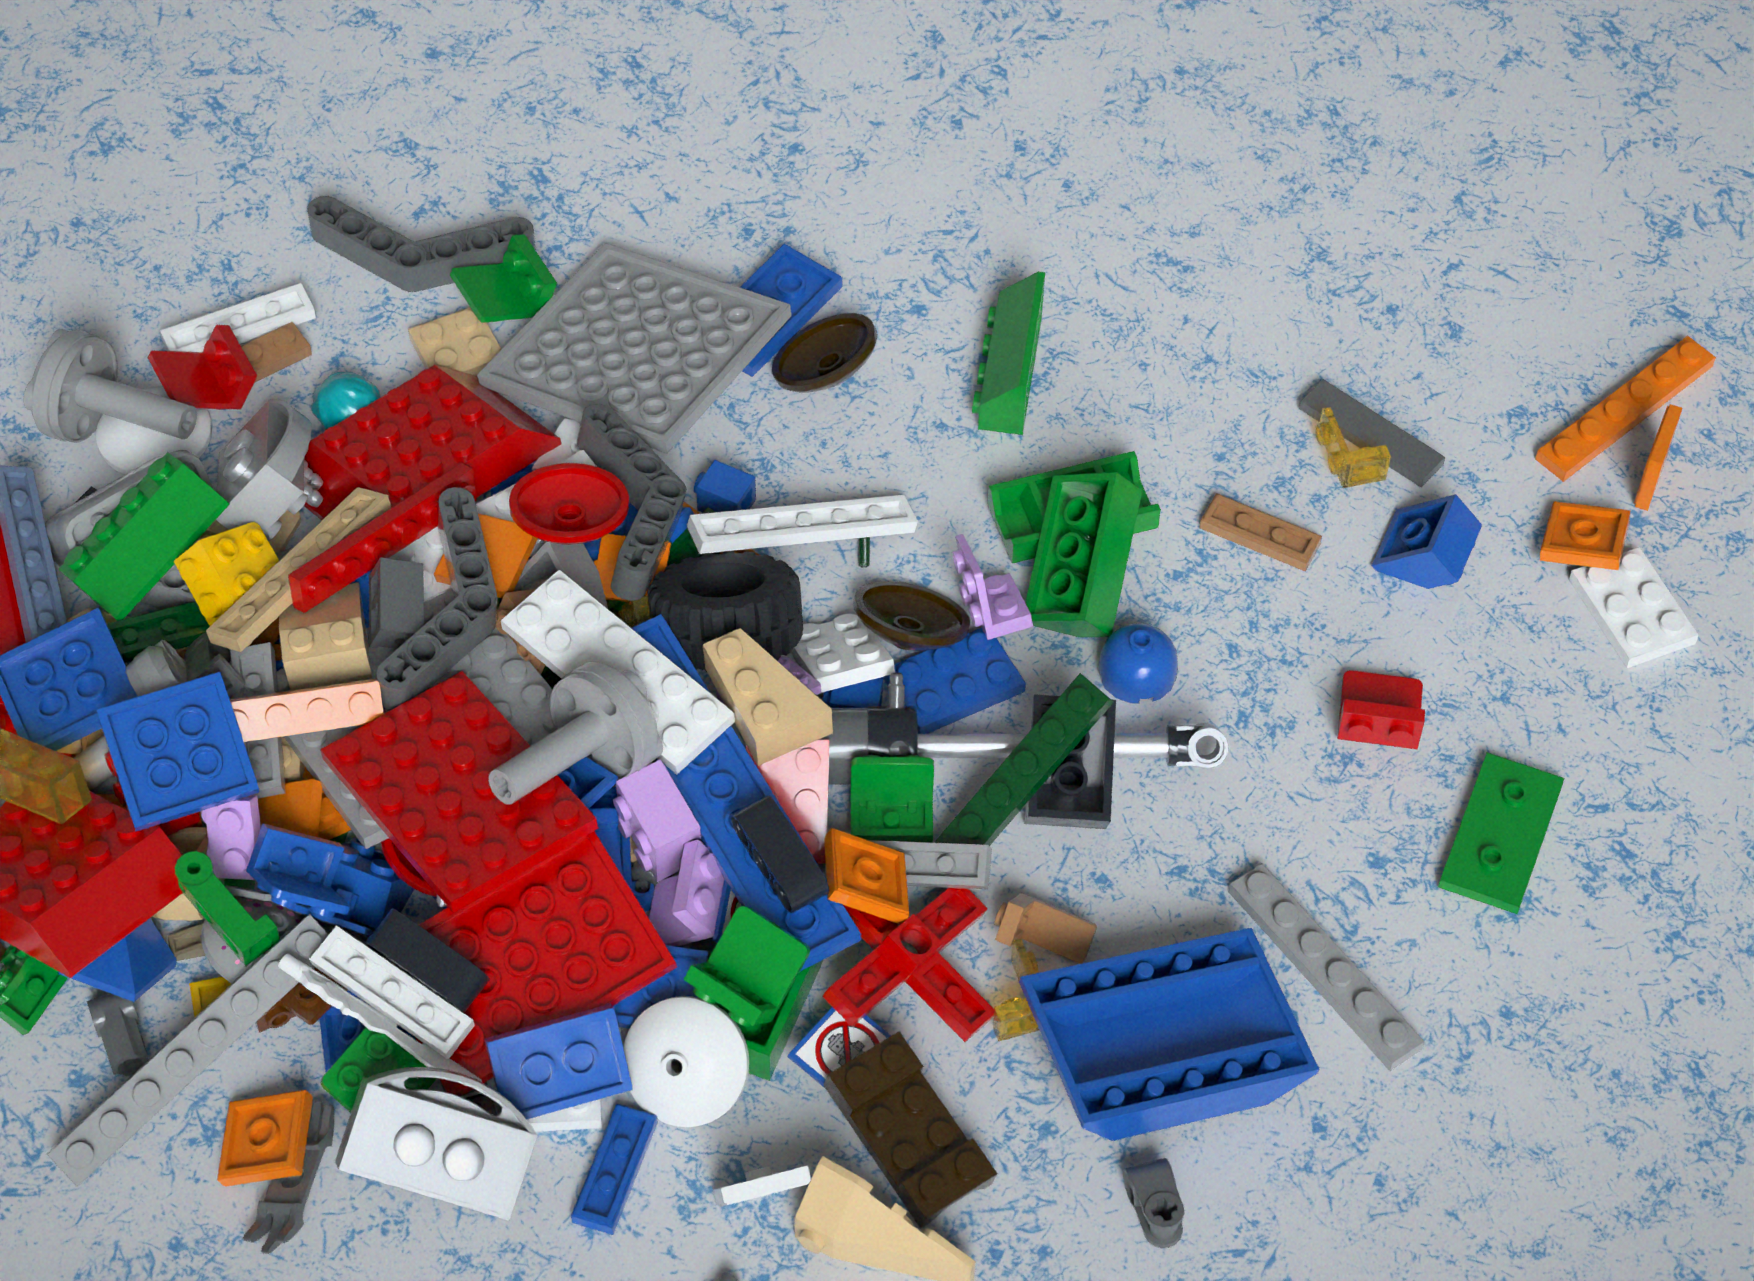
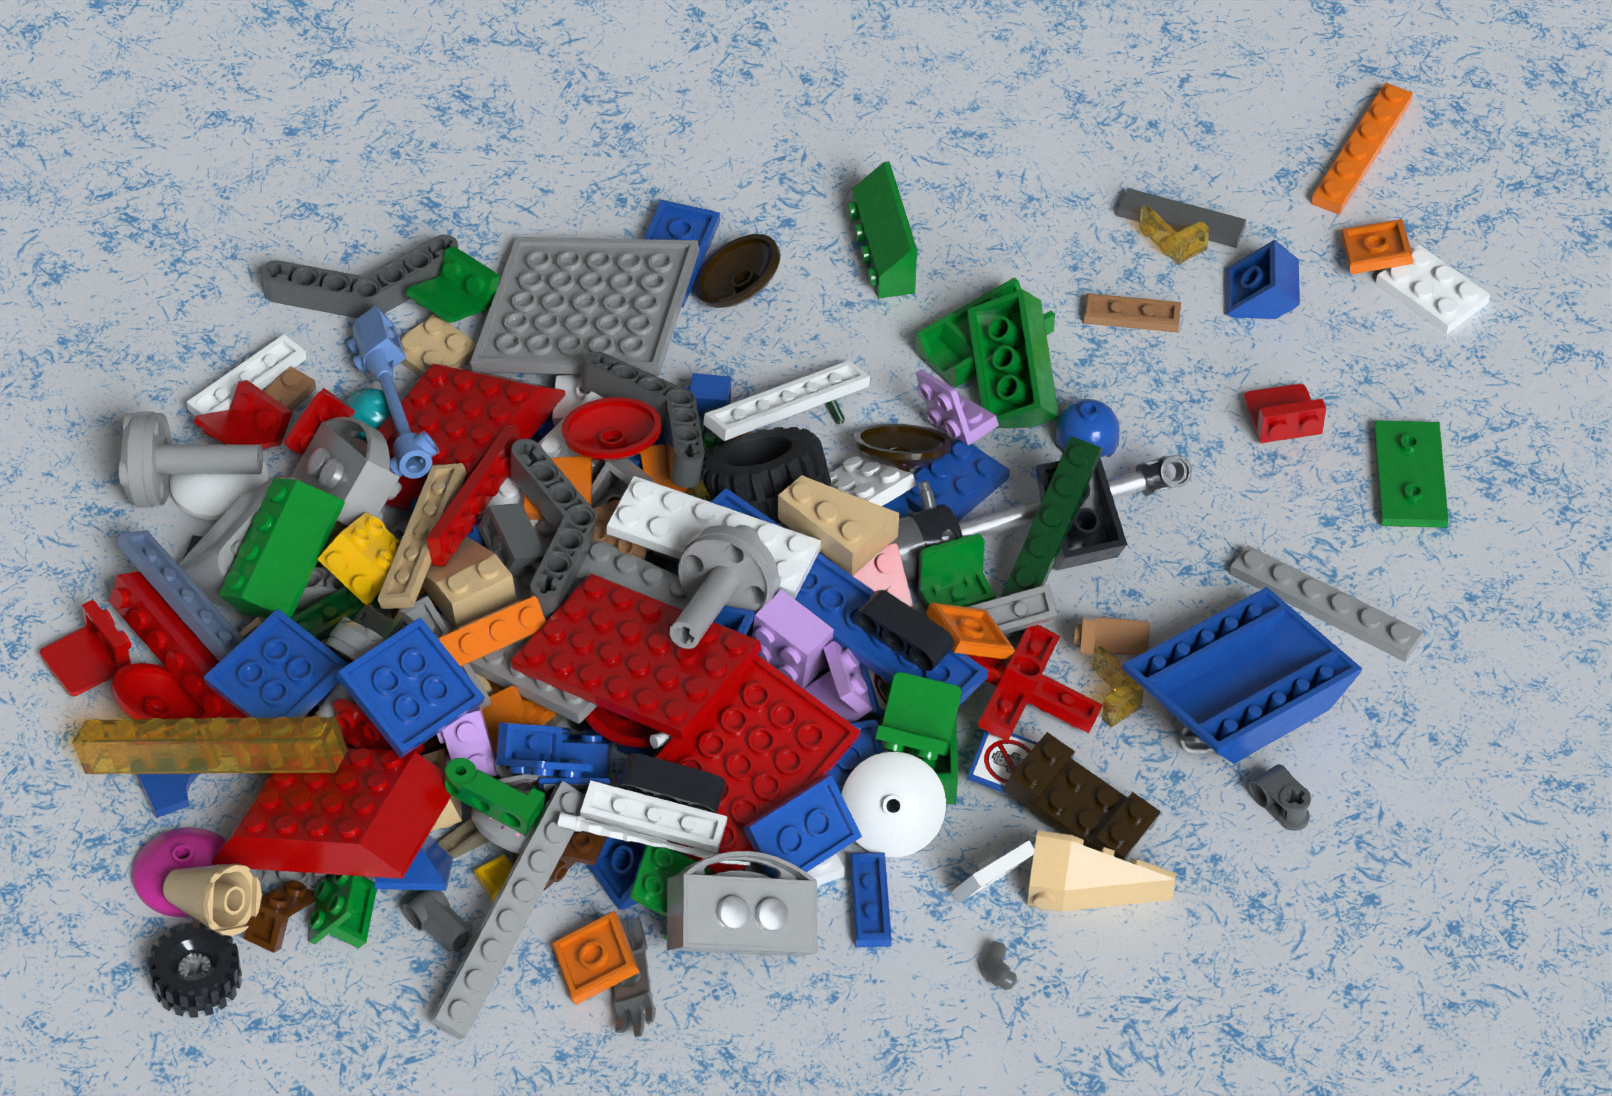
camera: 20 degrees left, 5 degrees down
(293, 385) = (322, 408): none -> red bracket
(387, 335) = (378, 352): none -> medium blue bar
(1657, 457) = (1407, 174): orange tile -> none

